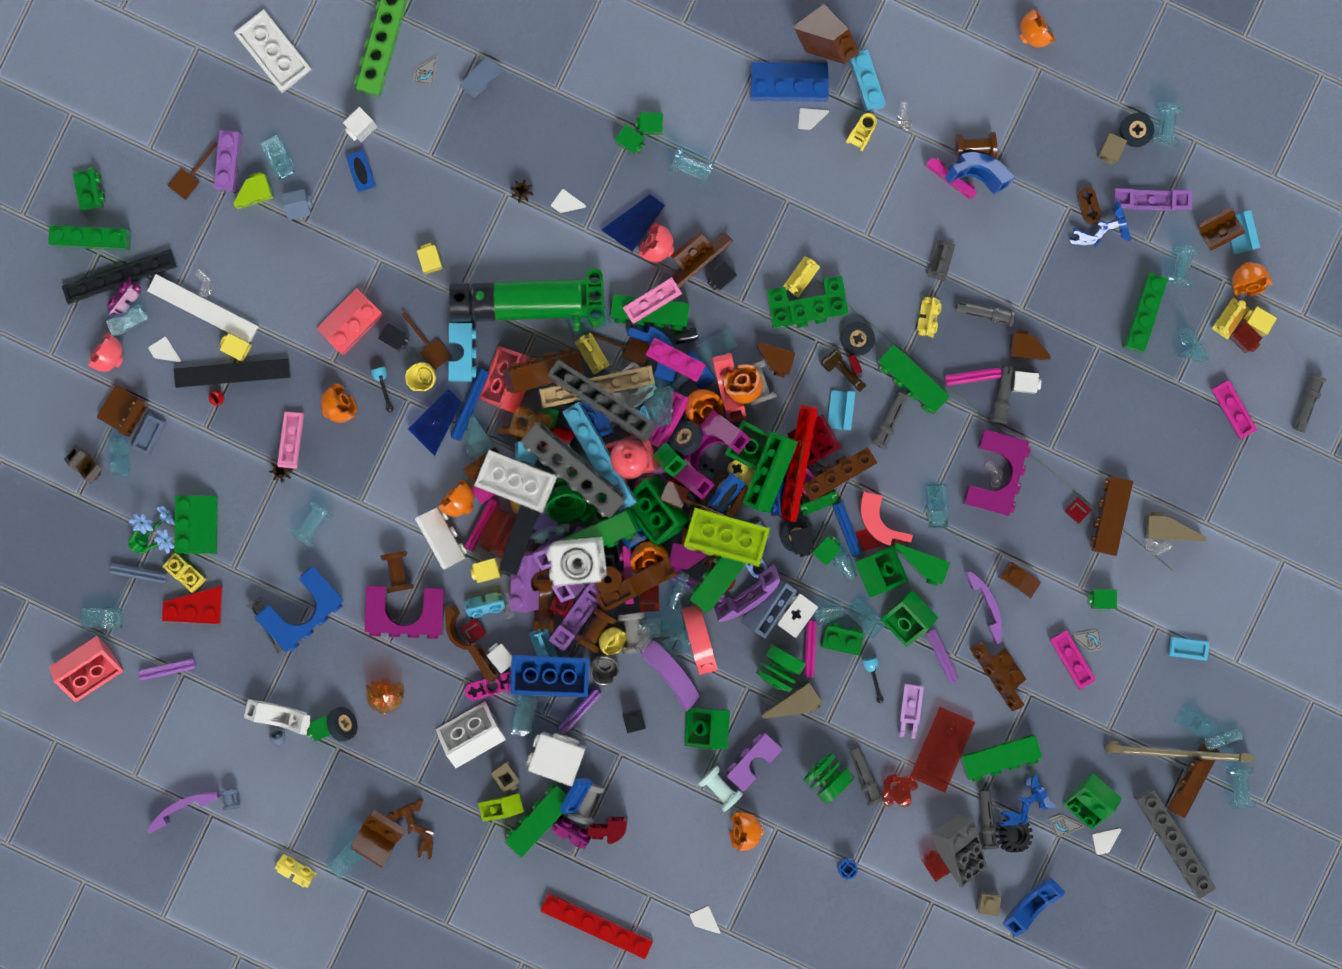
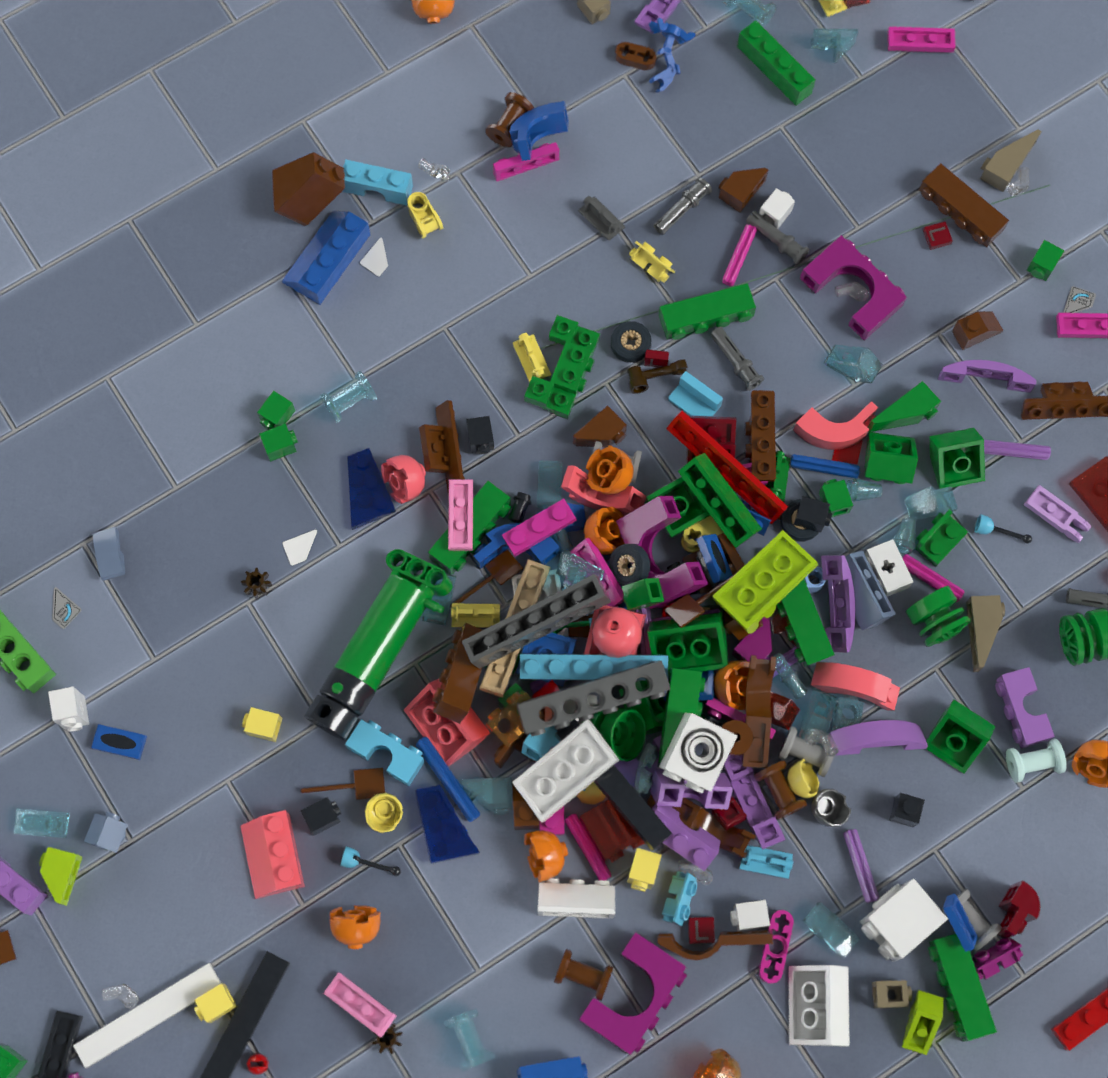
camera: 55 degrees left, 15 degrees down
(549, 676) = (804, 872): blue slope -> none

